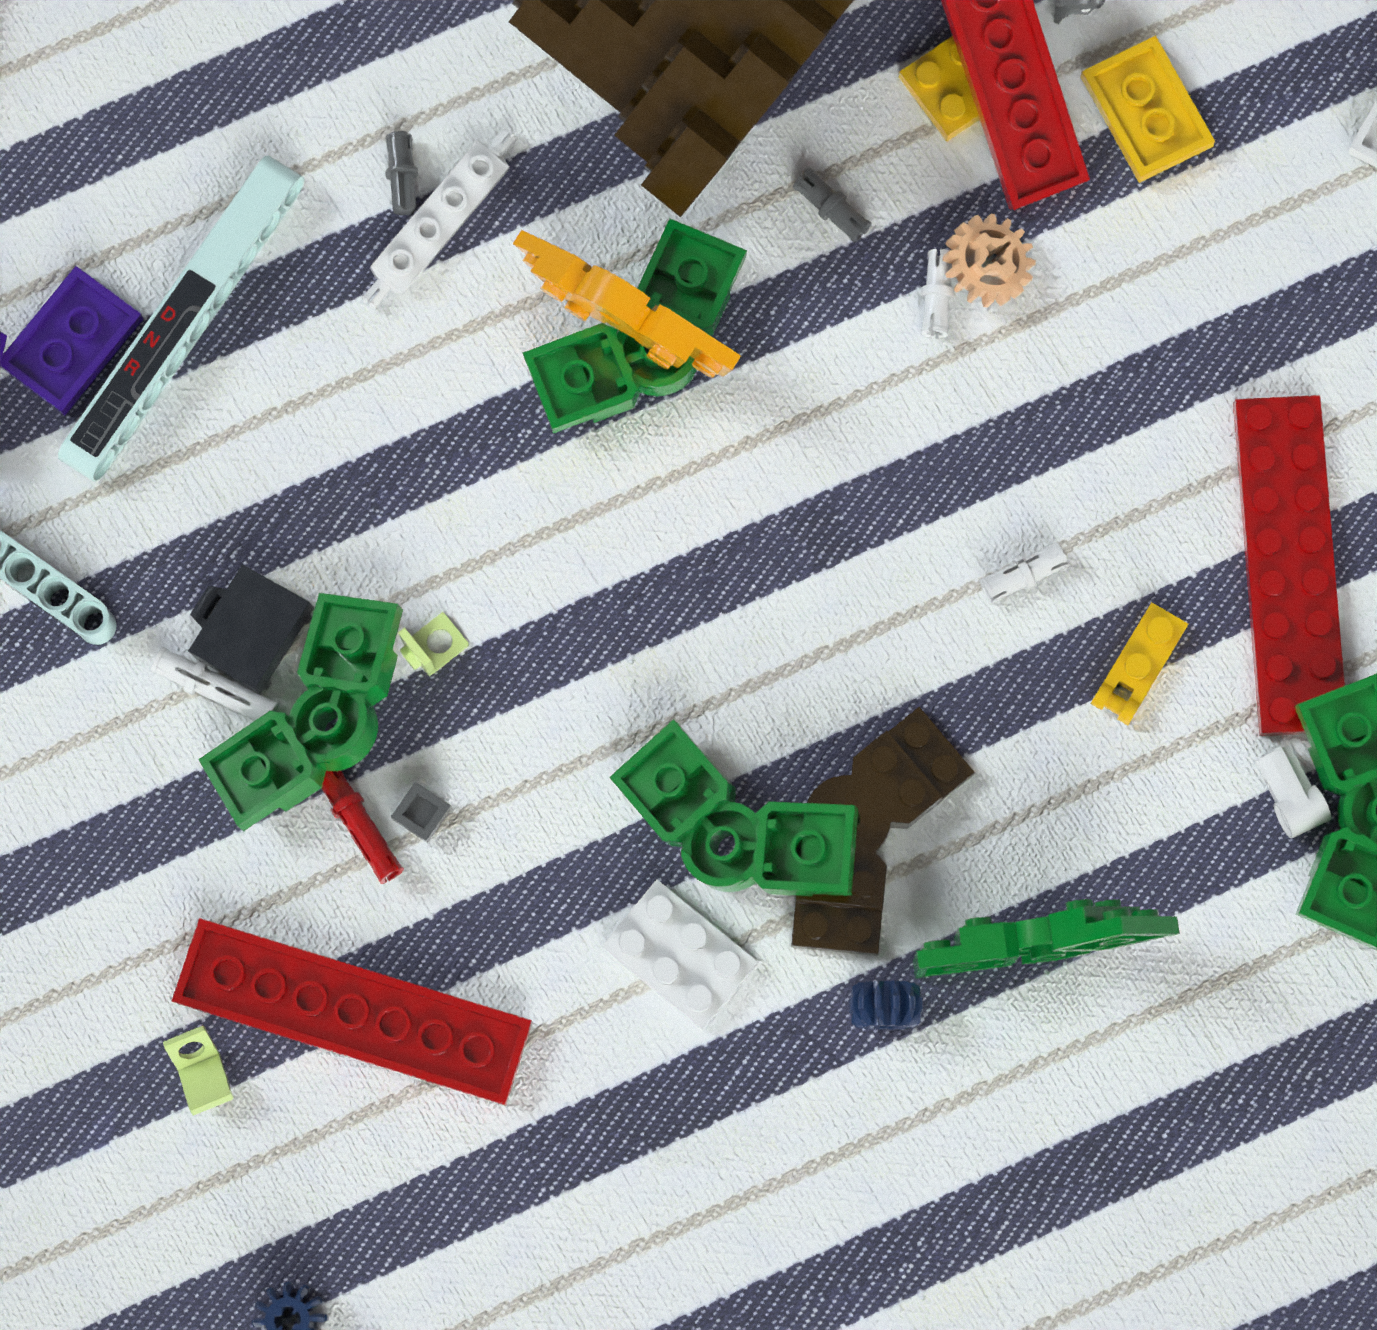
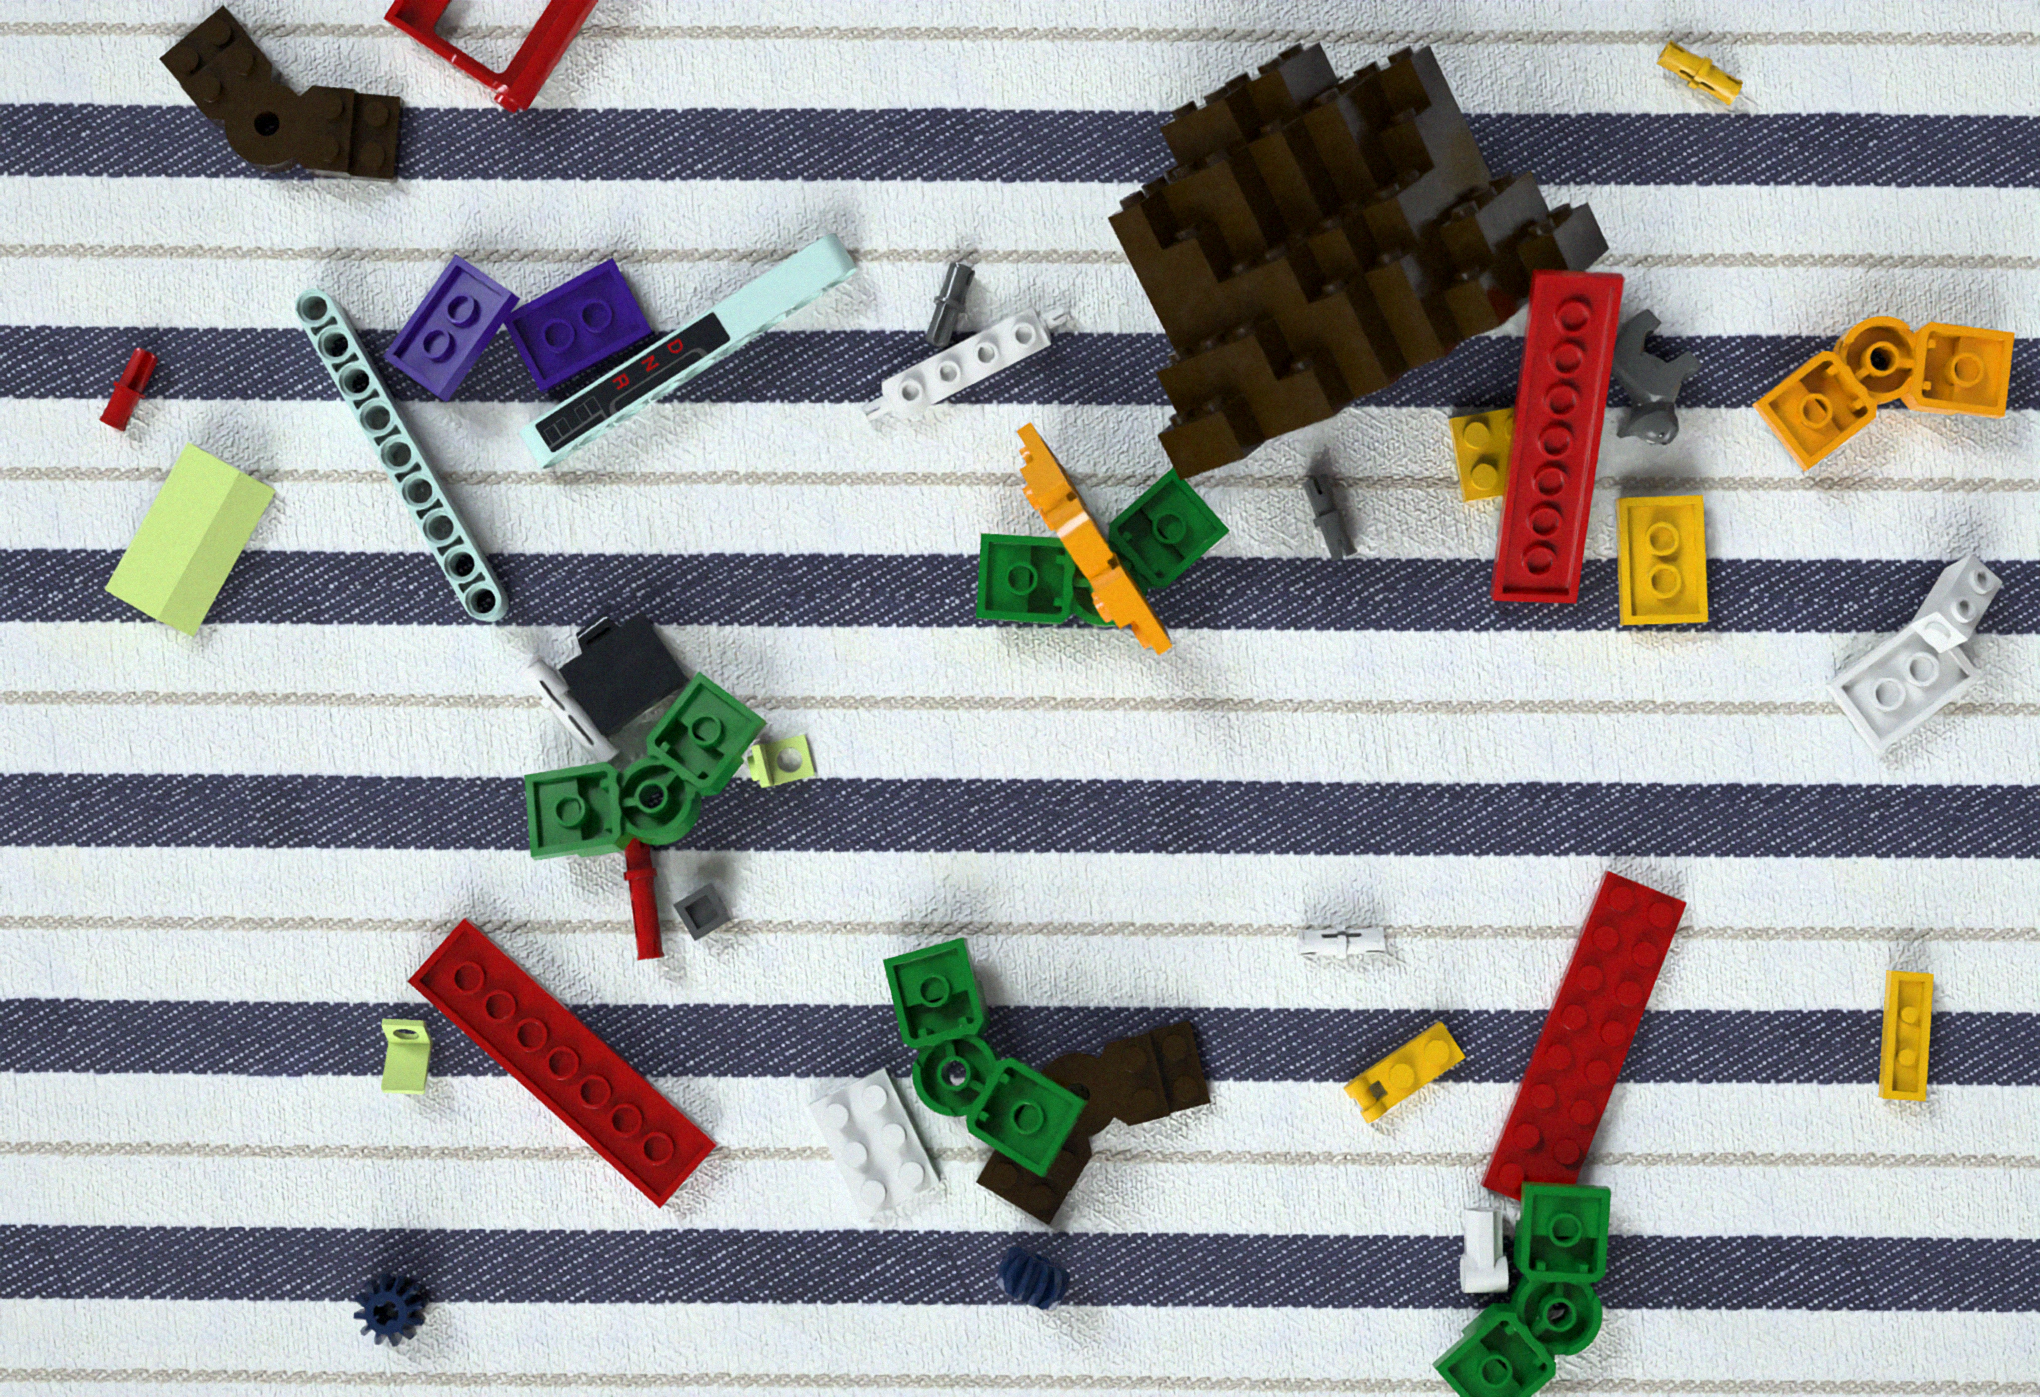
camera: 25 degrees right, 10 degrees up
(937, 296) = (1386, 646): white pin -> none
(1008, 269) = (1433, 628): light nougat gear -> none
(1043, 939) = (1222, 1298): green plate -> none

